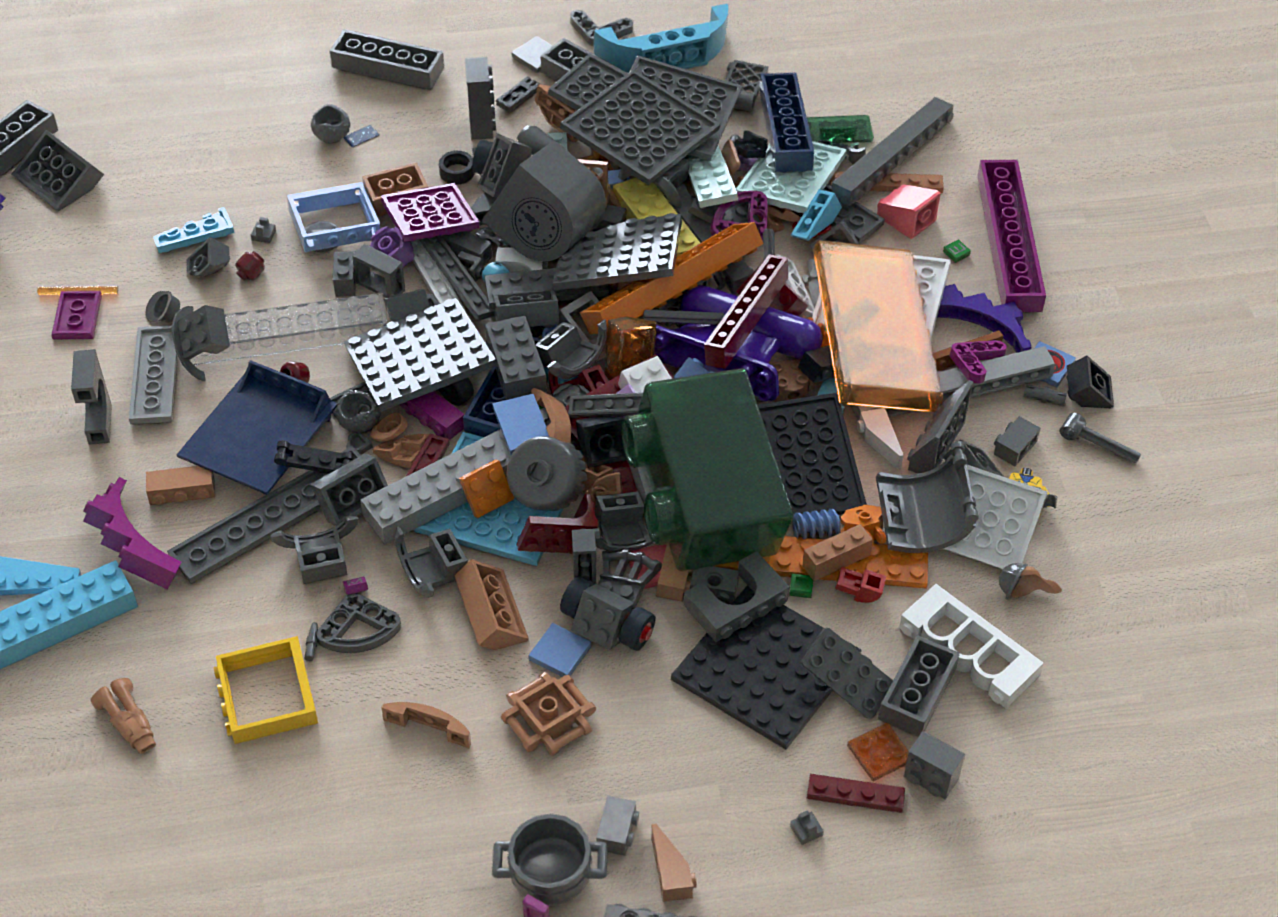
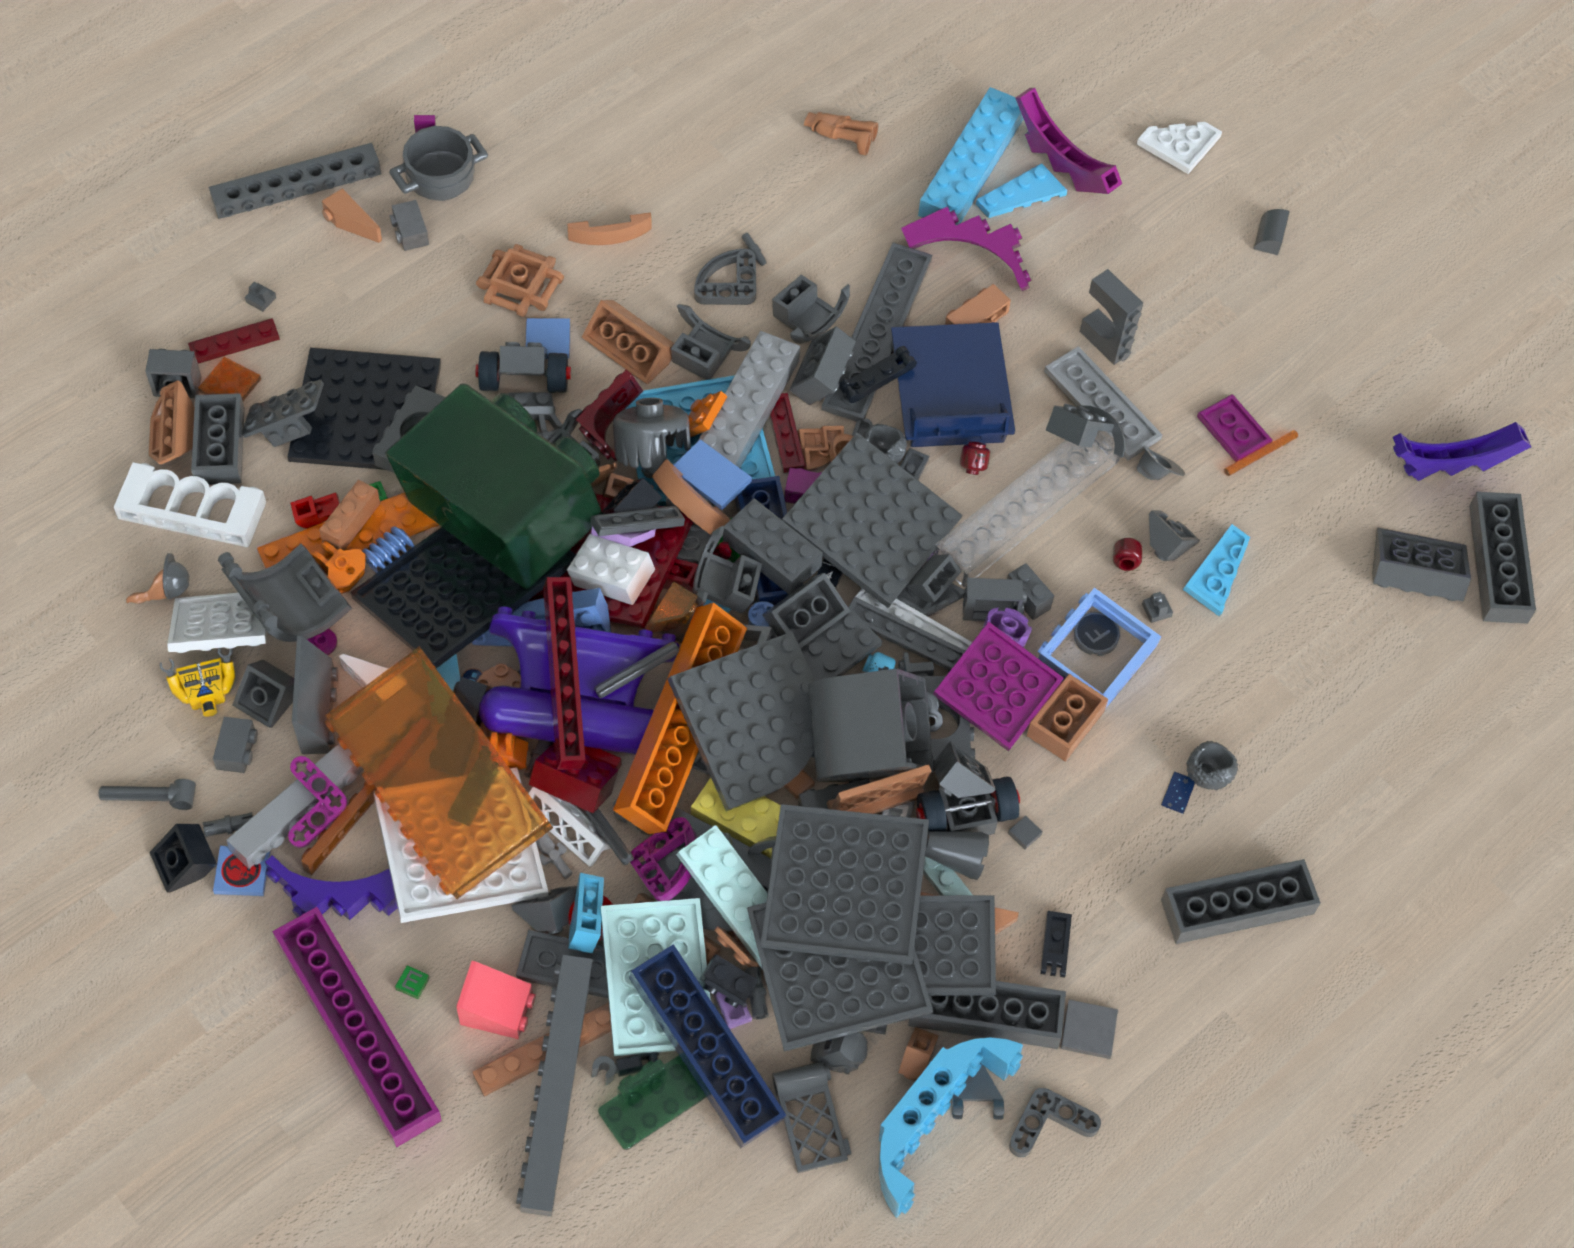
camera: 145 degrees right, 10 degrees up
(256, 656) = (739, 218): yellow window -> none
(355, 585) = (756, 304): magenta tile -> none
(452, 158) = (1046, 780): black tyre -> none
(480, 98) = (1070, 860): dark grey brick -> none
(584, 554) = (568, 389): dark grey brick -> none
(961, 713) = (171, 424): none -> nougat wedge

